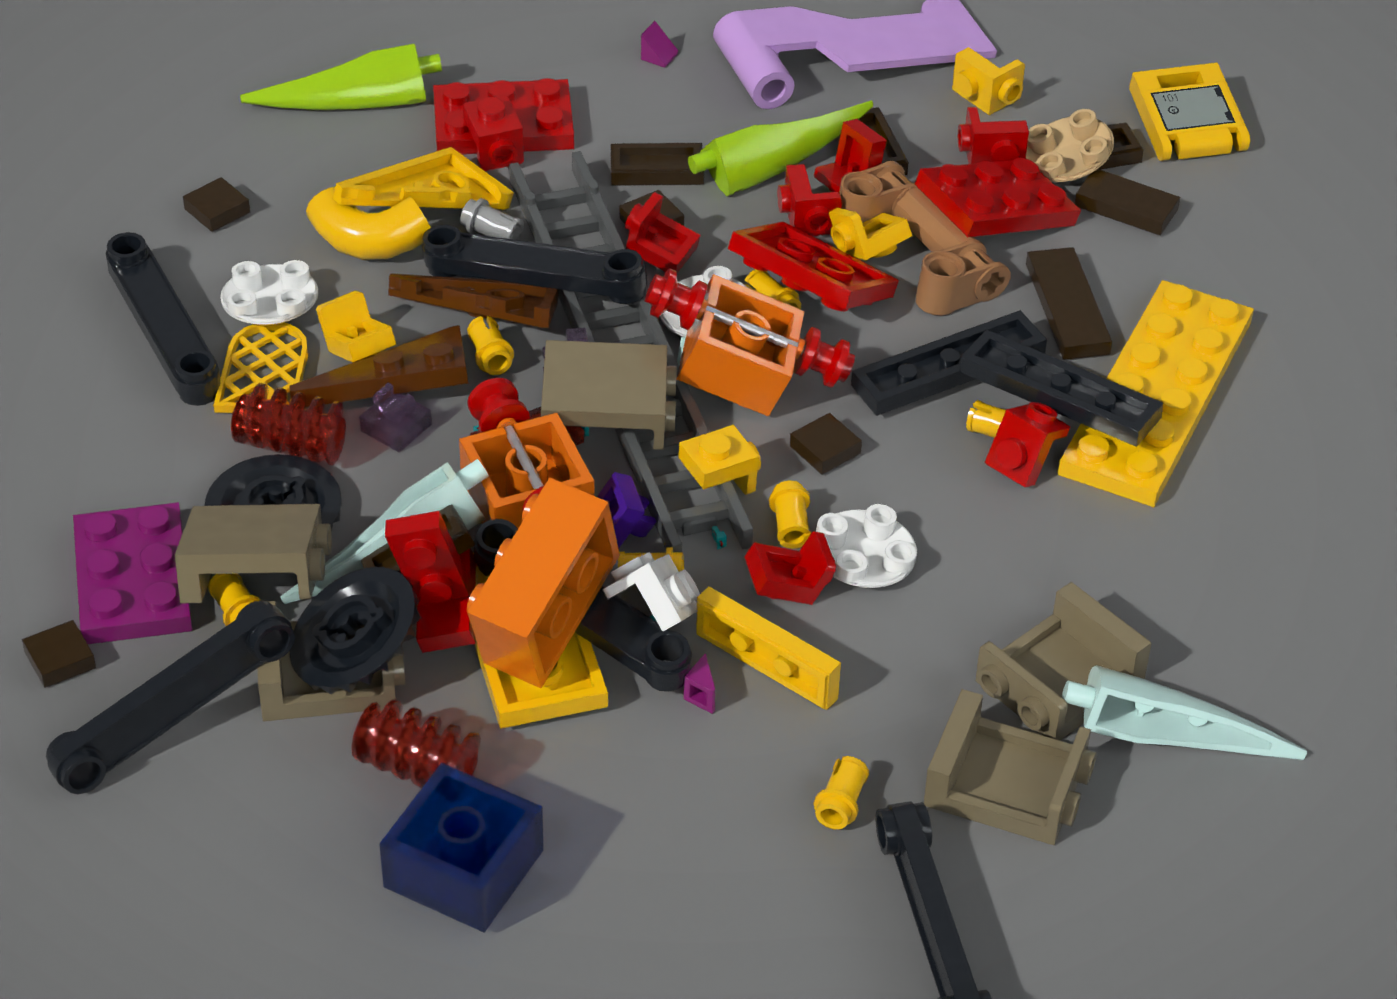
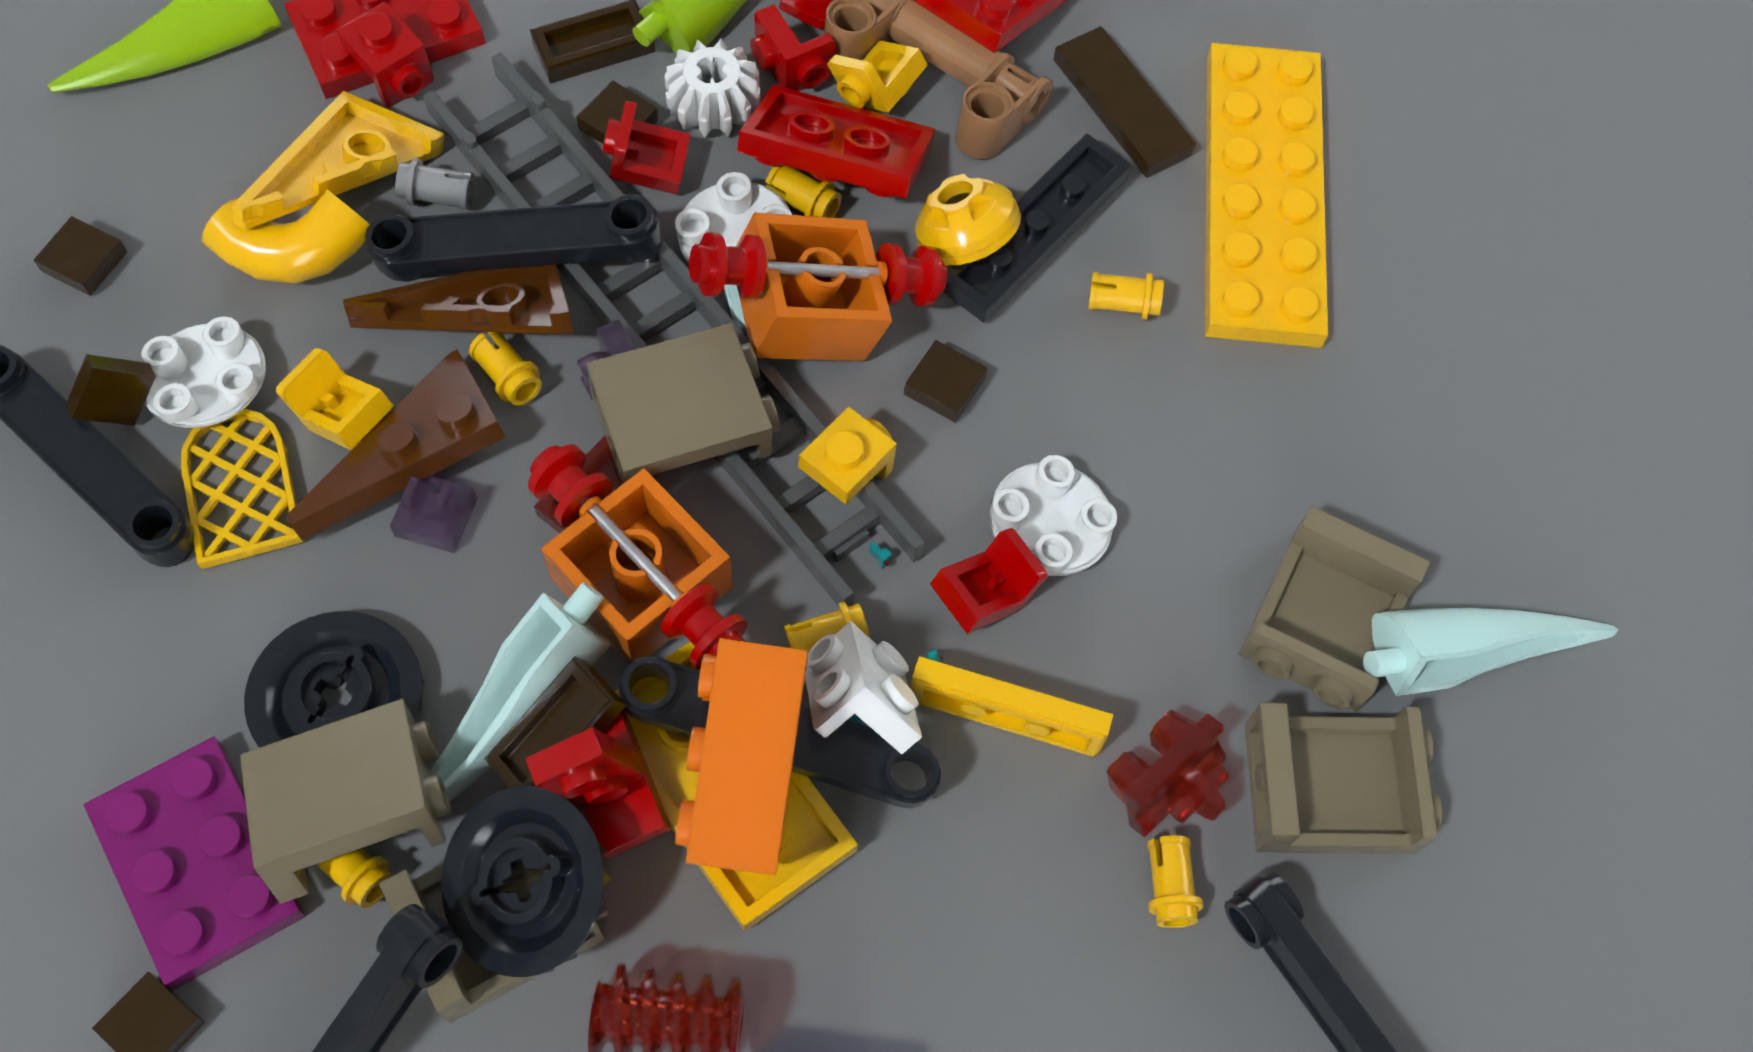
camera: 25 degrees left, 20 degrees up
(201, 280) = (110, 390): none -> dark brown tile
(289, 425) = (309, 574): clear red piece -> none
(626, 507) = (760, 565): dark purple tile -> none
(699, 686) = (954, 784): magenta piece -> none
(730, 207) = (712, 88): none -> white gear
(790, 503) = (951, 497): yellow pin -> none
(876, 725) = (1180, 780): none -> clear red hips
(891, 336) = (967, 219): none -> yellow piece
(1025, 442) = (1170, 315): red bracket -> none
(1062, 387) = (1185, 234): black plate -> none

